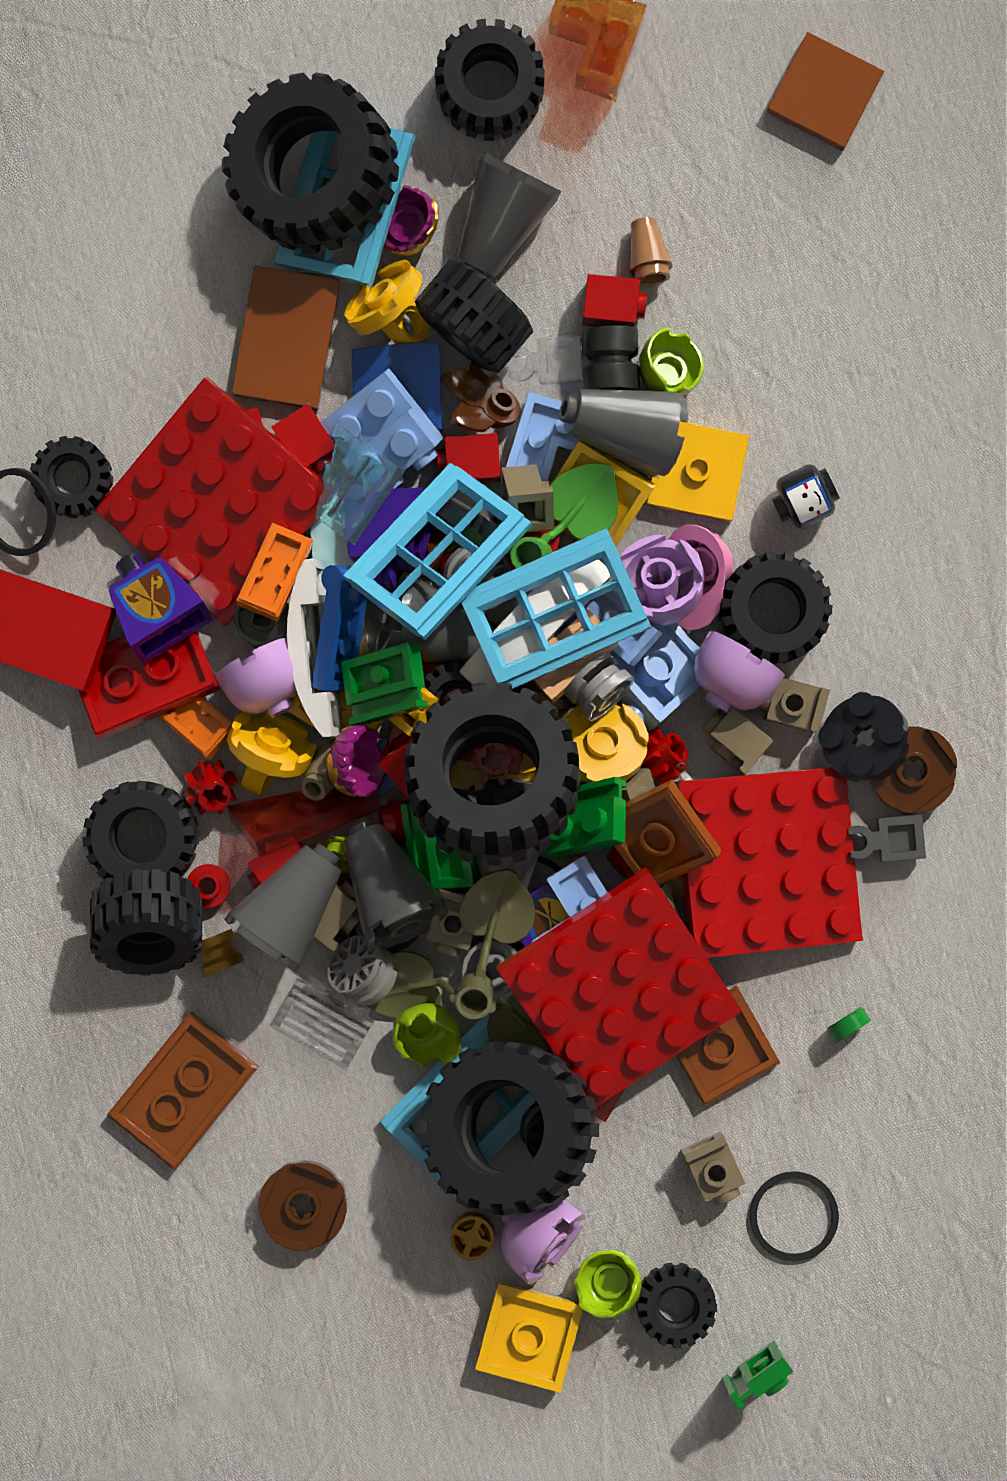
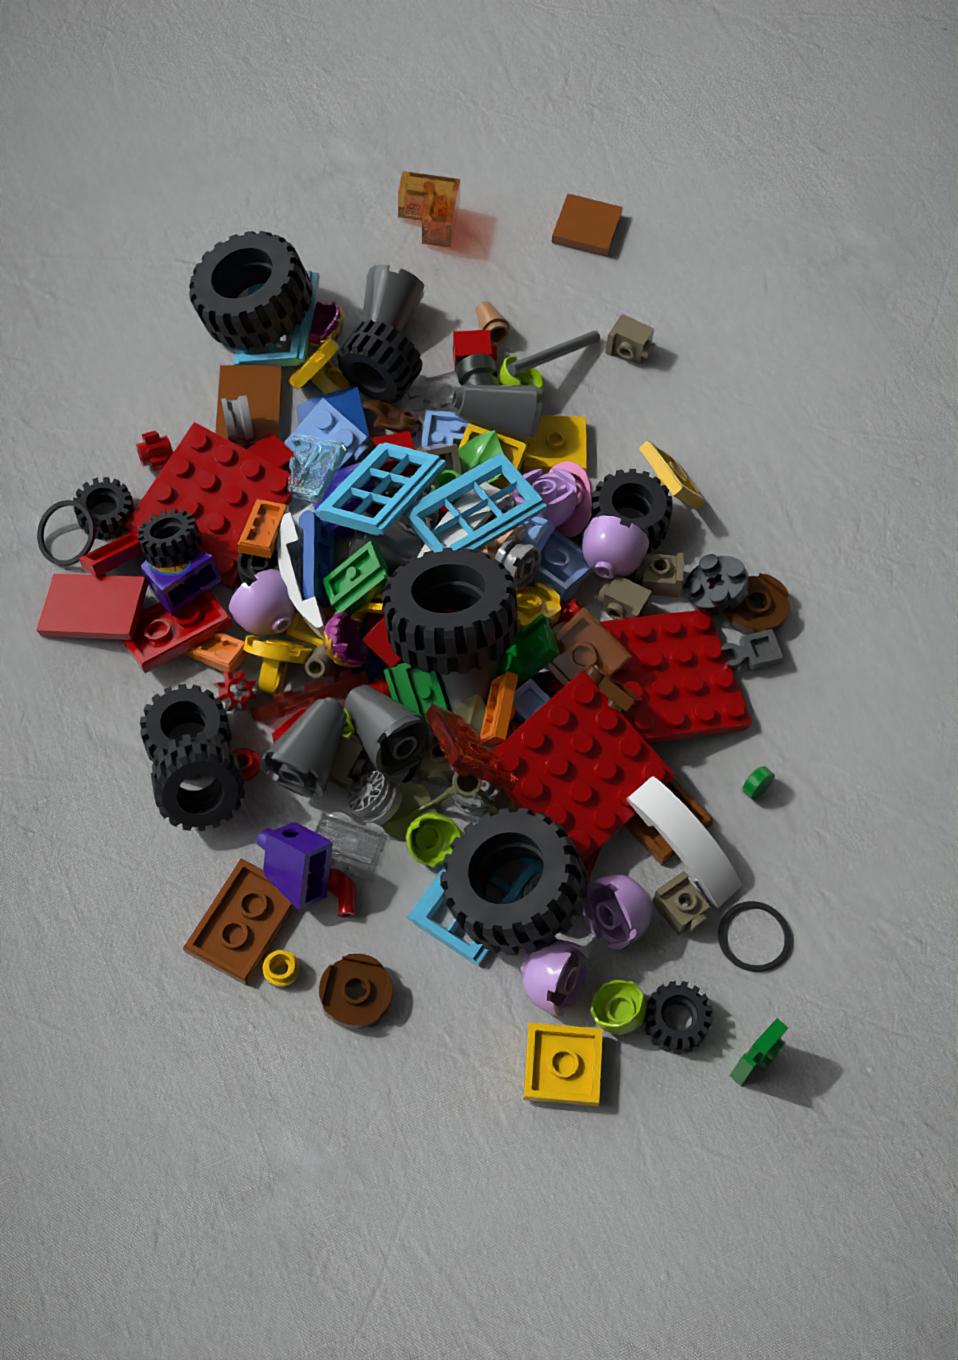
camera: 15 degrees left, 25 degrees down
(79, 555) = (112, 554): none -> red tile
(138, 544) = (170, 538): none -> black tyre
(147, 400) = (154, 450): none -> red gear
(209, 1169) = (277, 958): none -> yellow plate
(219, 953) = (258, 809): pearl gold wheel -> none
(252, 1041) = (297, 863): none -> dark purple torso
(270, 381) = (237, 418): none -> light grey wheel
(308, 1072) = (345, 890): none -> red arm
(470, 1243) = (500, 982): pearl gold wheel -> none
(475, 960) = (464, 750): none -> clear red wing
(482, 45) = (359, 222): black tyre -> none
(534, 899) = (499, 709): none -> orange plate
(636, 1165) = (617, 910): none -> lavender cylinder
(687, 900) = (618, 694): none -> reddish brown plate
(724, 330) = (553, 353): none -> dark grey bar
(733, 1095) = (688, 839): none -> white slope
(805, 496) = (629, 440): head -> none
(841, 318) = (630, 339): none -> dark tan brick
(843, 563) = (672, 475): none -> yellow plate

